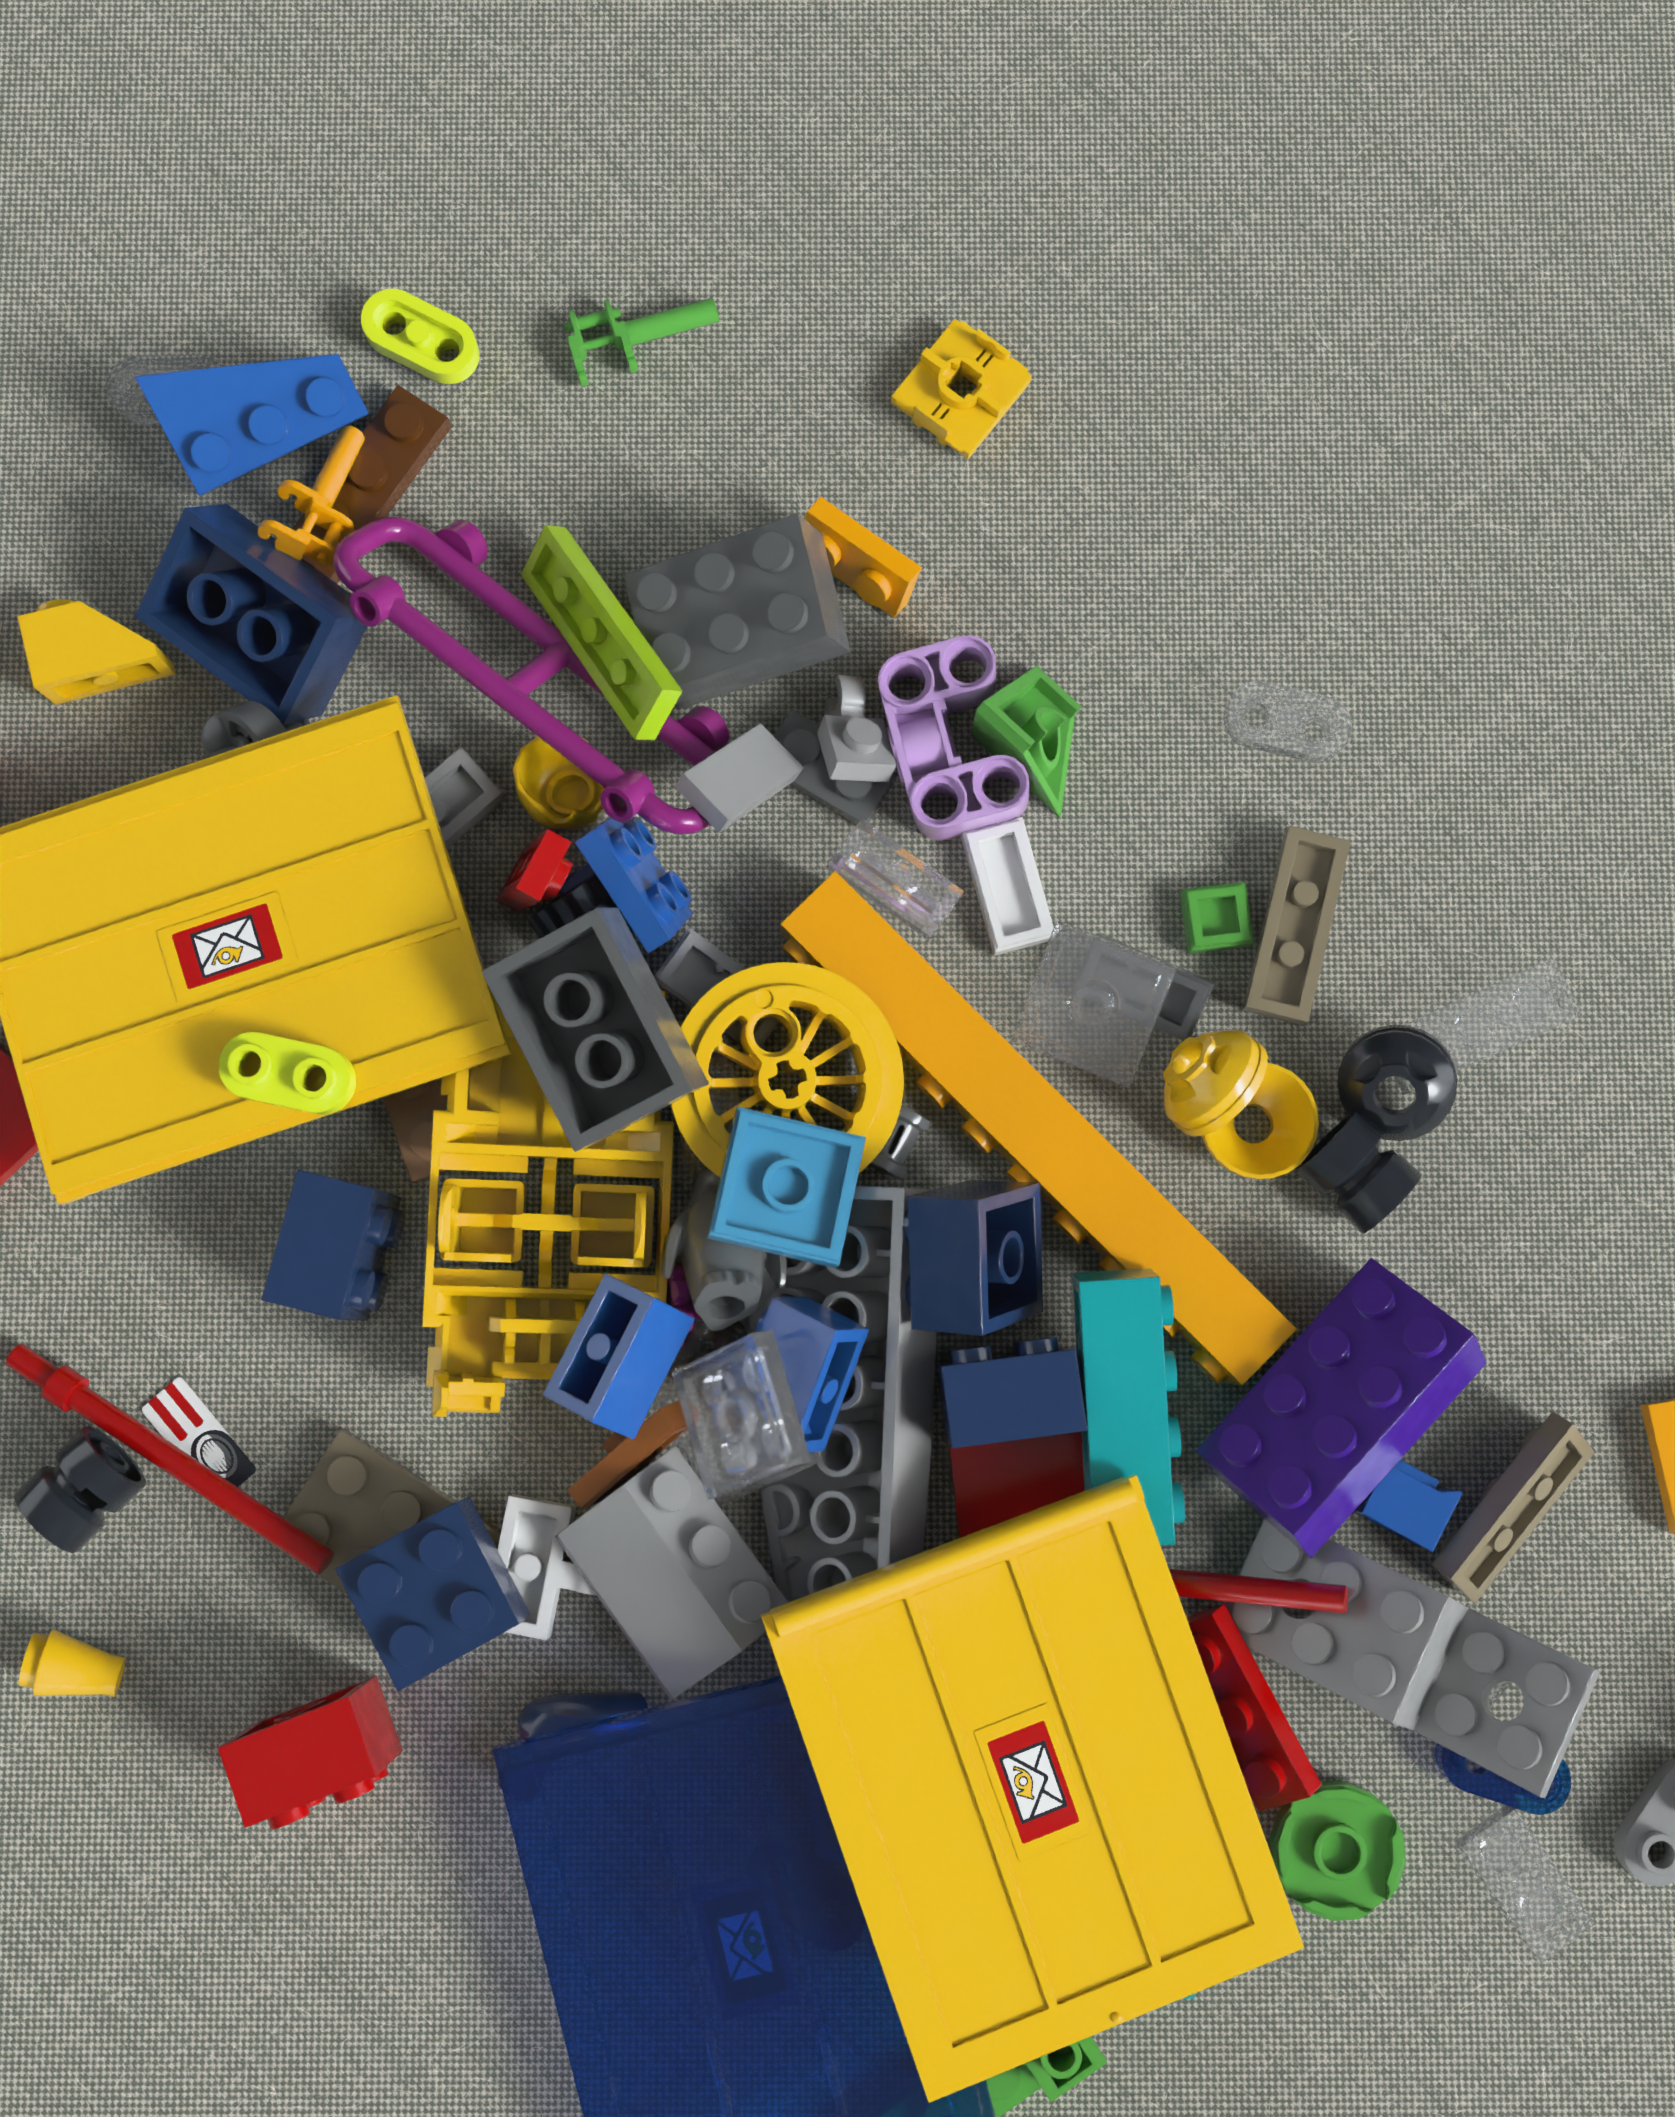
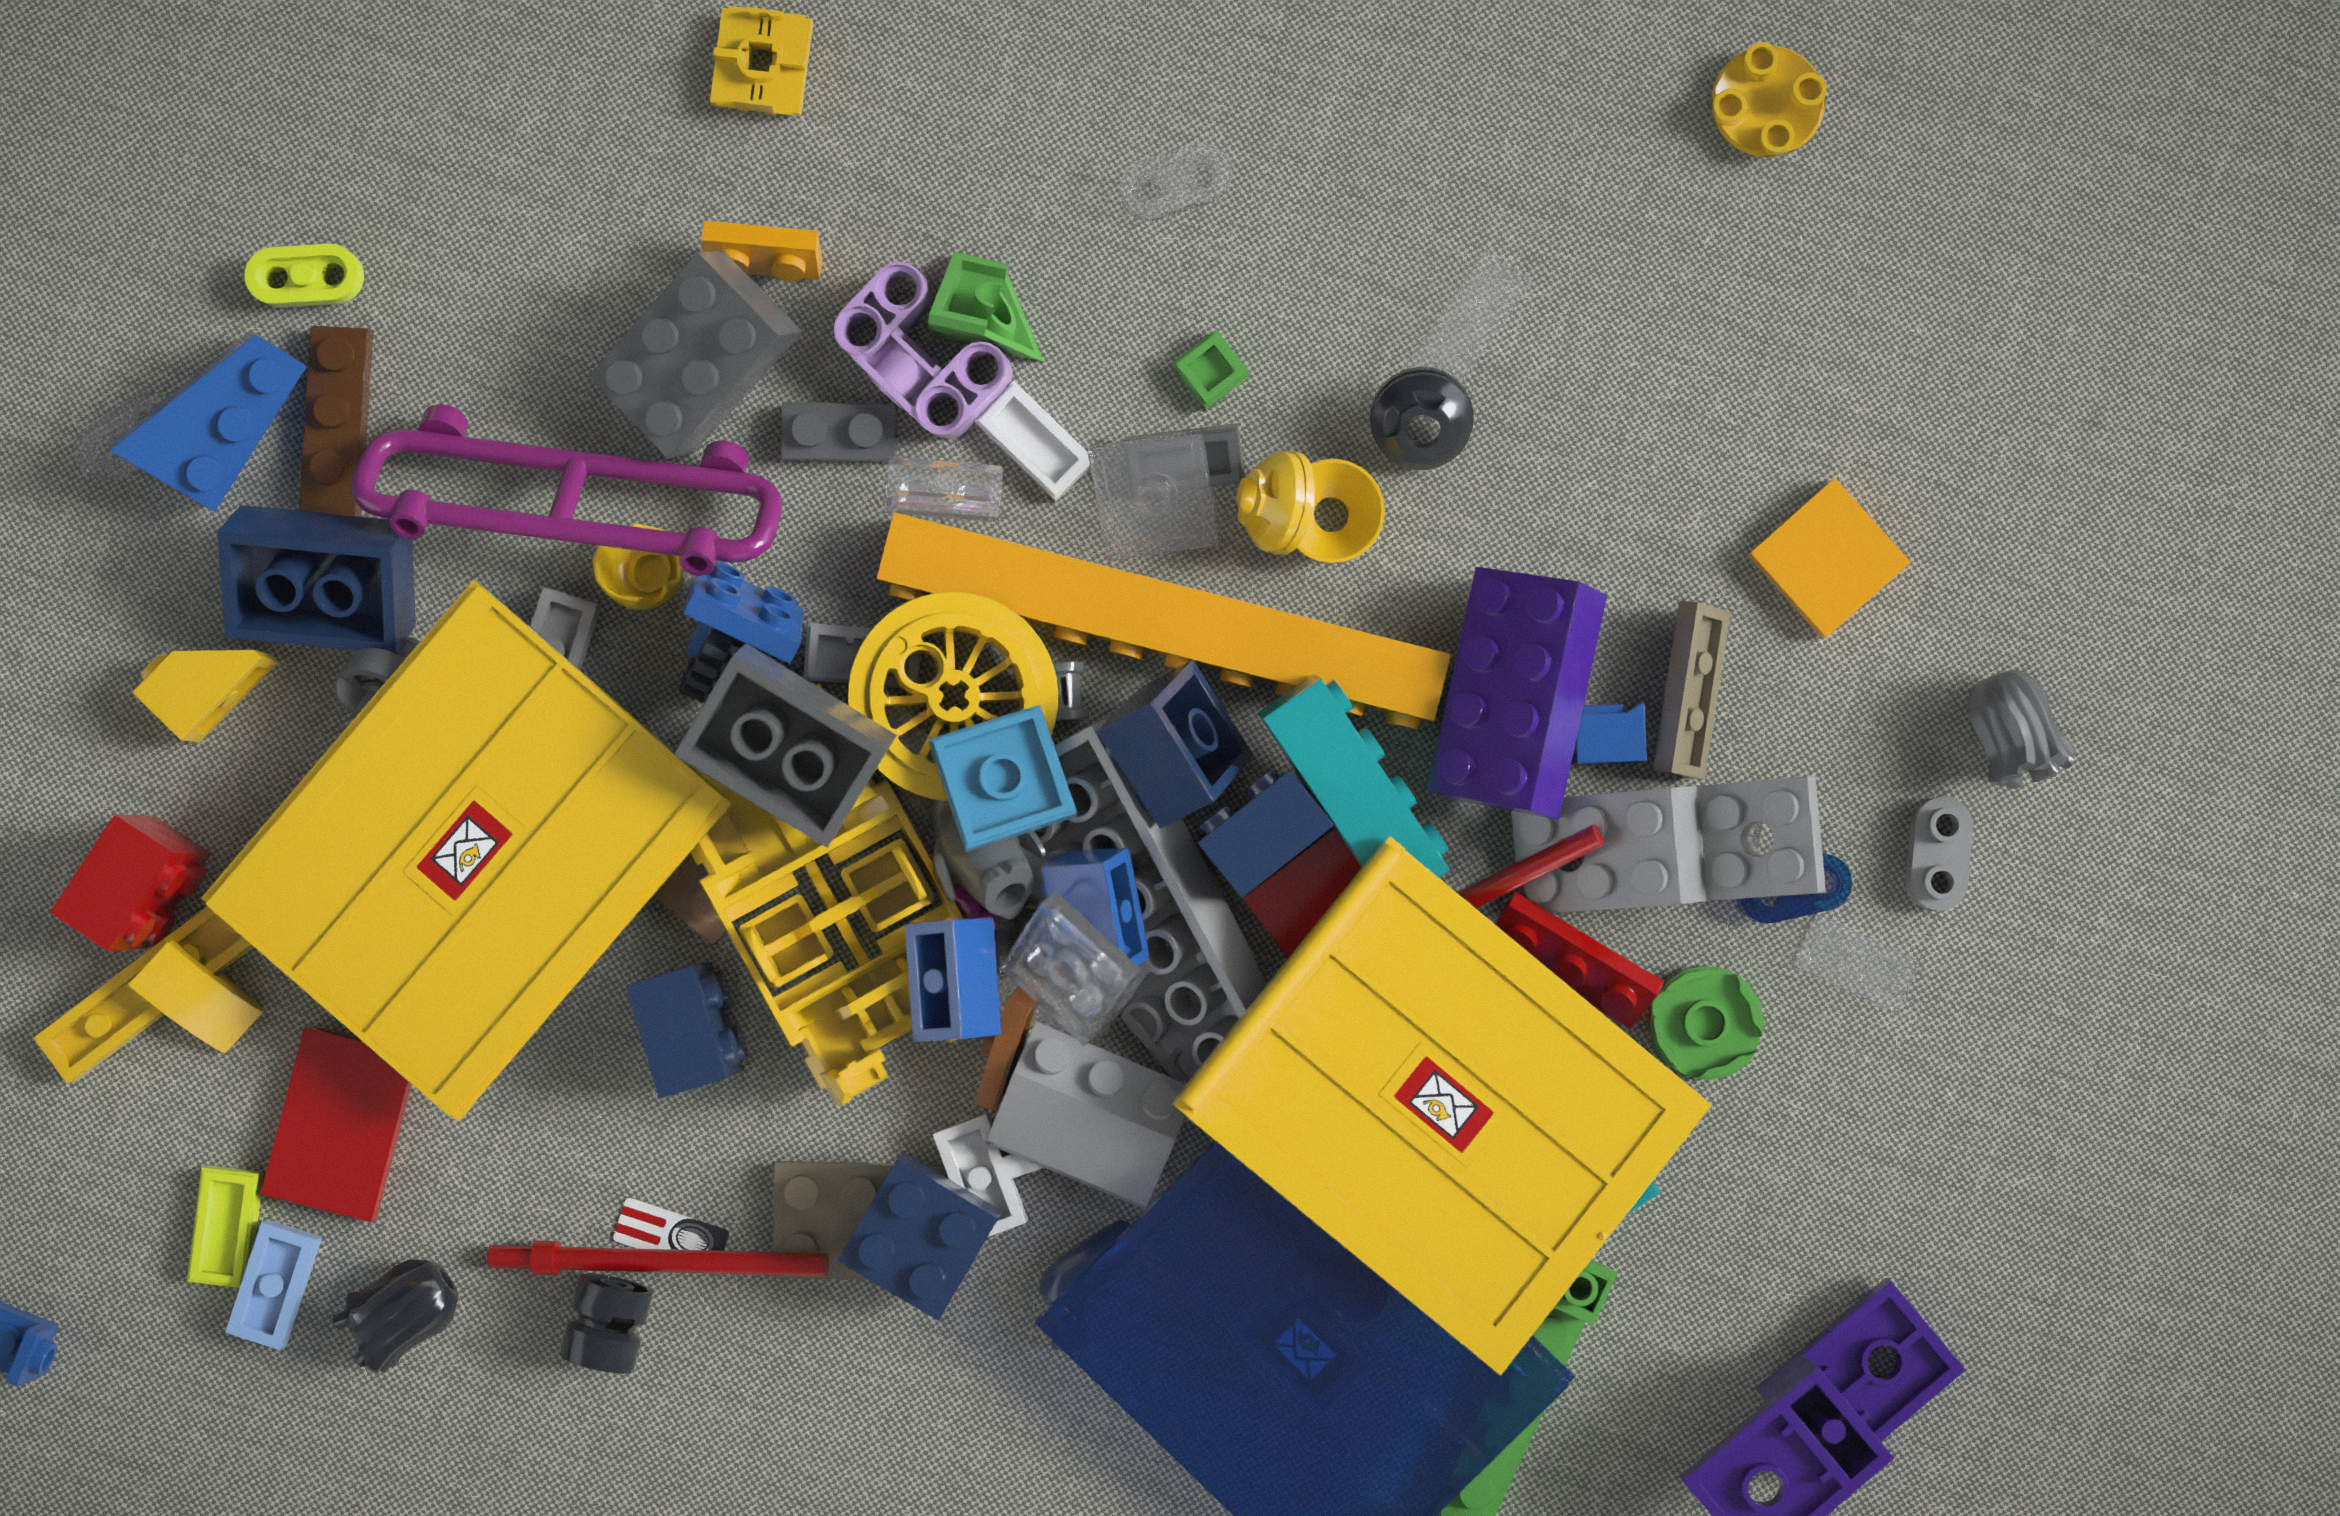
camera: 25 degrees left, 5 degrees up
(68, 1666) = (681, 1457): yellow cone -> none
(285, 1073) = (571, 920): neon yellow plate -> none
(311, 1752) = (906, 1398): red brick -> none
(317, 504) = (312, 462): light orange piece -> none
(537, 872) = (665, 652): red plate -> none
(601, 633) = (598, 433): lime plate -> none
(634, 331) = (473, 167): bright green piece -> none
(739, 777) = (776, 483): light grey tile -> none
(850, 743) = (846, 402): light grey plate -> none
(1296, 925) = (1275, 340): dark tan plate -> none
(1366, 1180) = (1431, 505): black wheel -> none

